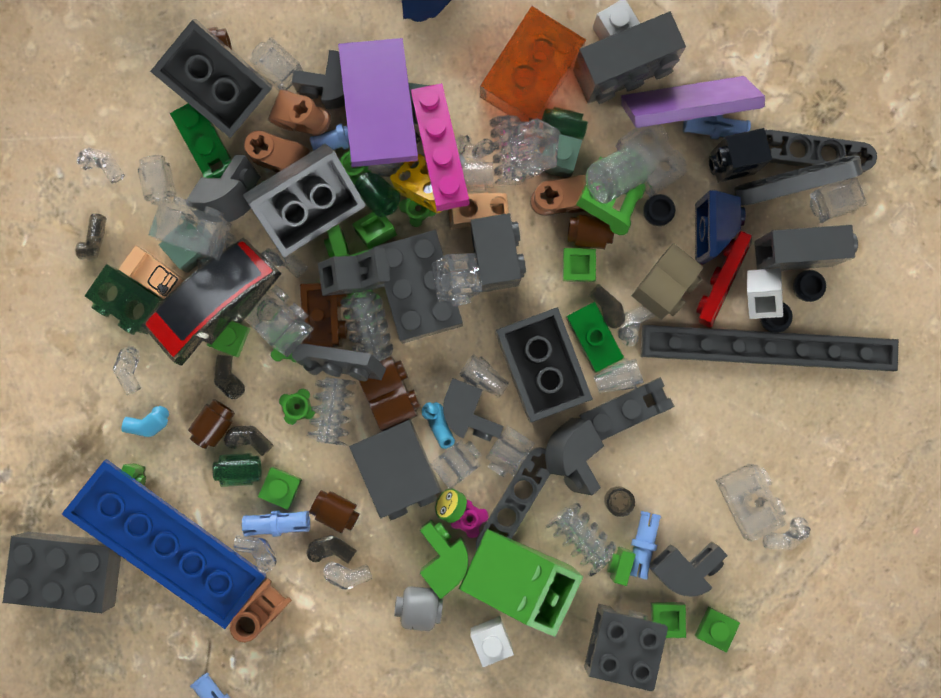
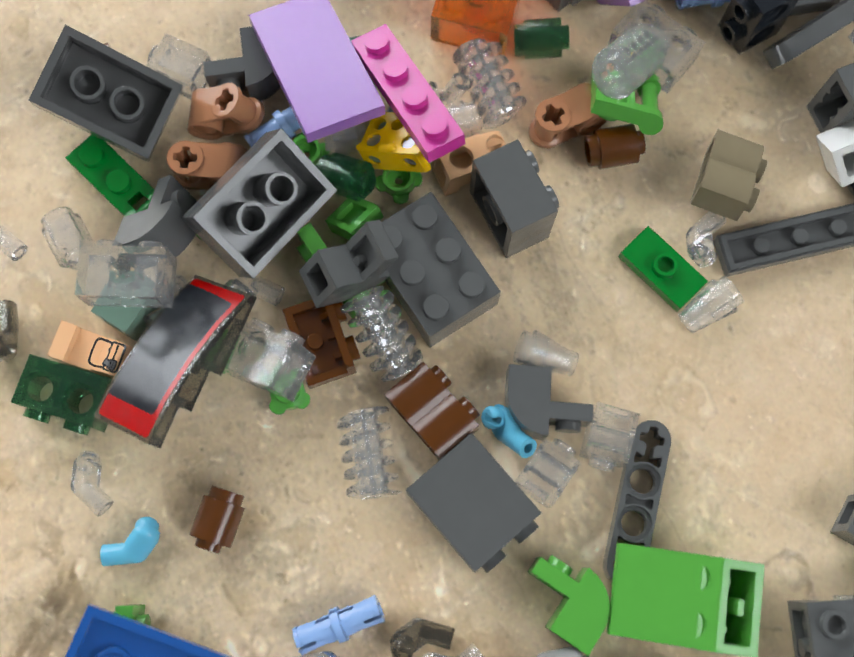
camera: 15 degrees left, 10 degrees down
(225, 379) = (220, 458): clear smoke arm -> none
(231, 339) = (212, 405): bright green plate -> none
(237, 470) = (267, 569): clear green brick -> none
(247, 435) = (268, 520): clear smoke arm -> none
(280, 488) = (329, 577): bright green plate -> none
(288, 403) = (309, 462): bright green plate -> none
(334, 511) = (411, 584): reddish brown brick -> none
(338, 362) = (360, 386): dark grey plate -> none
(451, 505) = (558, 529): tile -> none
(457, 278) = (478, 235): clear brick -> none
(471, 528) = (575, 545): dark pink plate -> none
(534, 146) = (519, 60): clear brick -> none
(543, 365) = (615, 315): dark grey brick -> none
(567, 156) = (549, 69): sand green brick -> none
(568, 452) = (686, 417): dark grey brick -> none
(579, 265) = (614, 189): bright green plate -> none
(583, 537) = (742, 516): clear piece -> none
(611, 308) = (670, 228): clear smoke arm -> none
(613, 508) = (752, 454): clear smoke bush -> none
(621, 565) = (801, 539): bright green plate -> none
(628, 409) = (731, 346): dark grey plate -> none
(644, 544) = (819, 504): light blue pin -> none
(659, 210) = (685, 101): black plate -> none
(716, 223) = (758, 92): dark blue slope -> none
(723, 279) = (790, 154): red plate -> none

